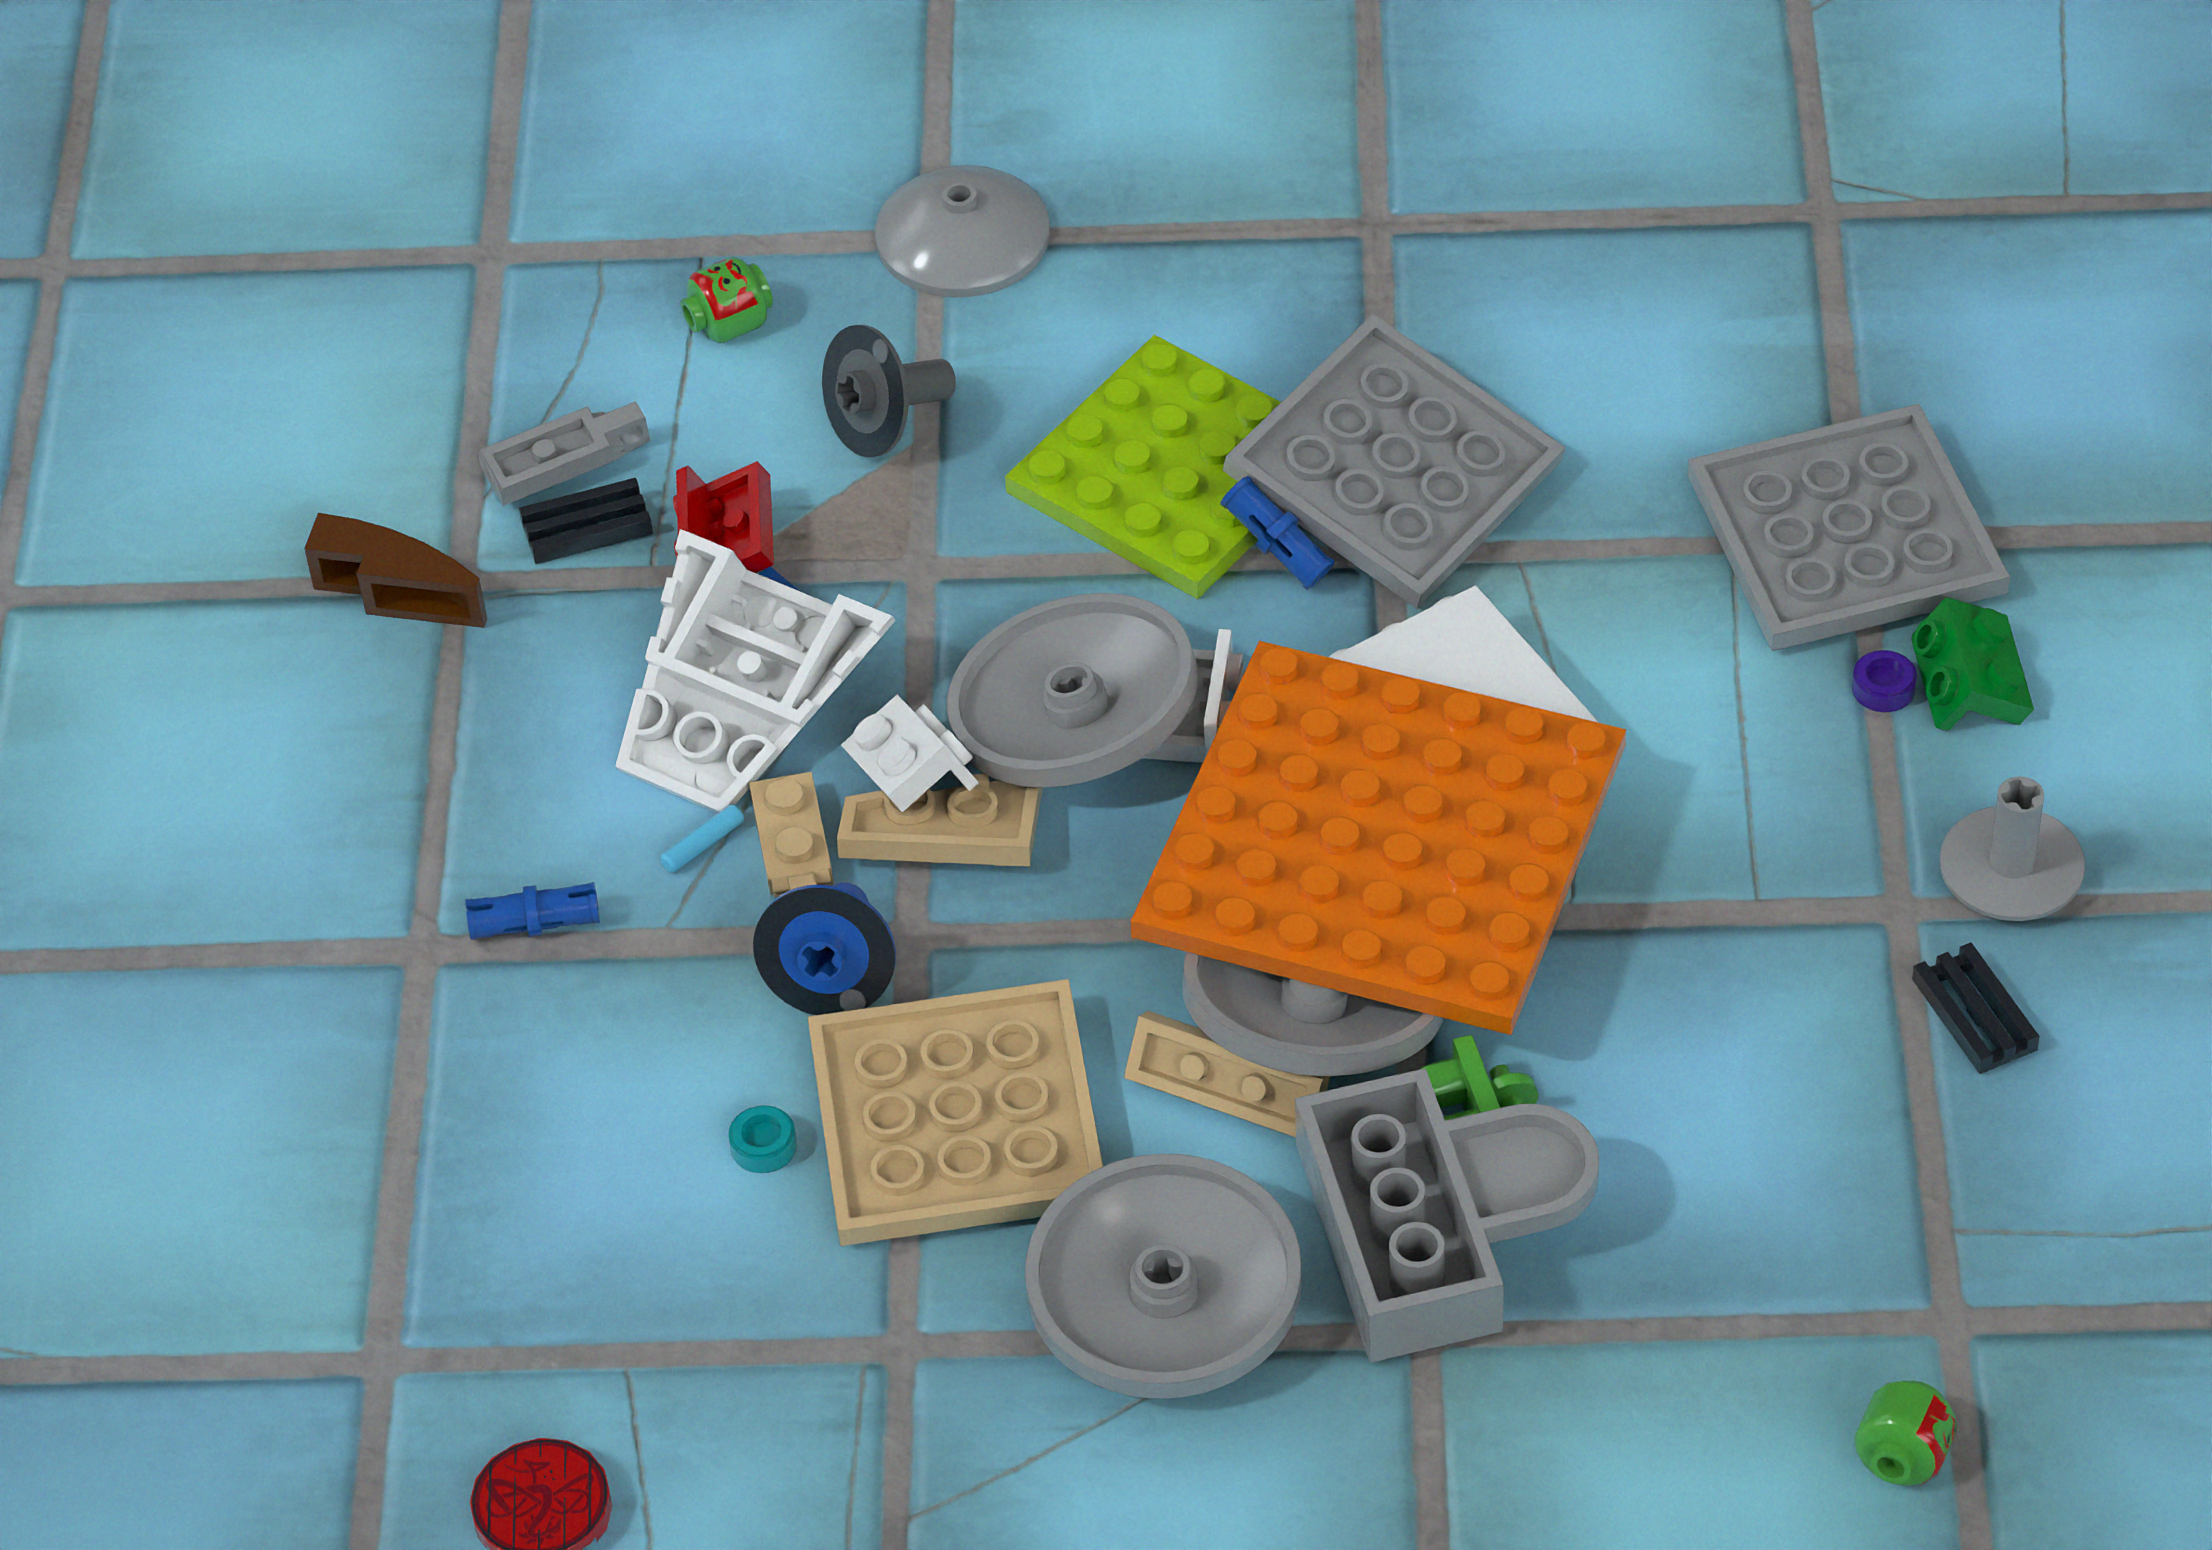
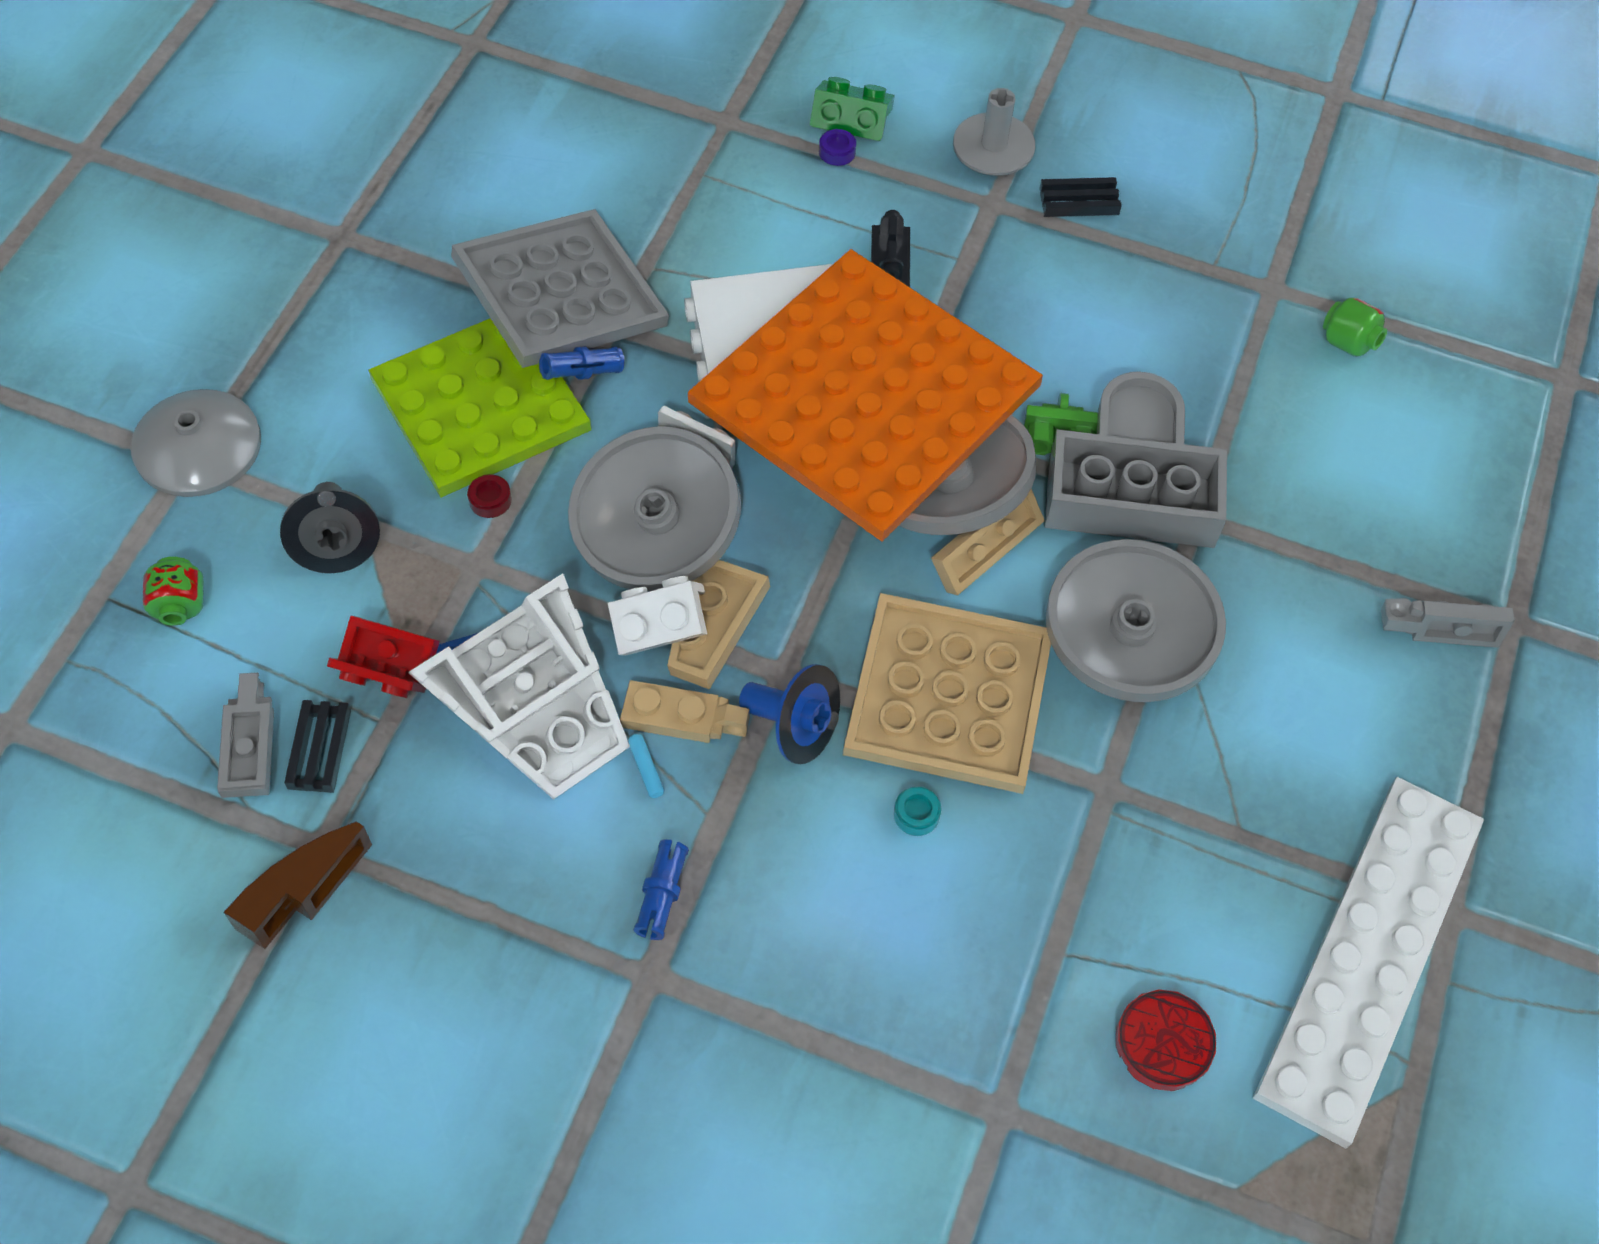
camera: 75 degrees left, 10 degrees up
(1028, 534) = (489, 496): none -> dark red tile
(1701, 810) = (892, 246): none -> black hinge
(1847, 526) = (723, 117): light grey plate -> none

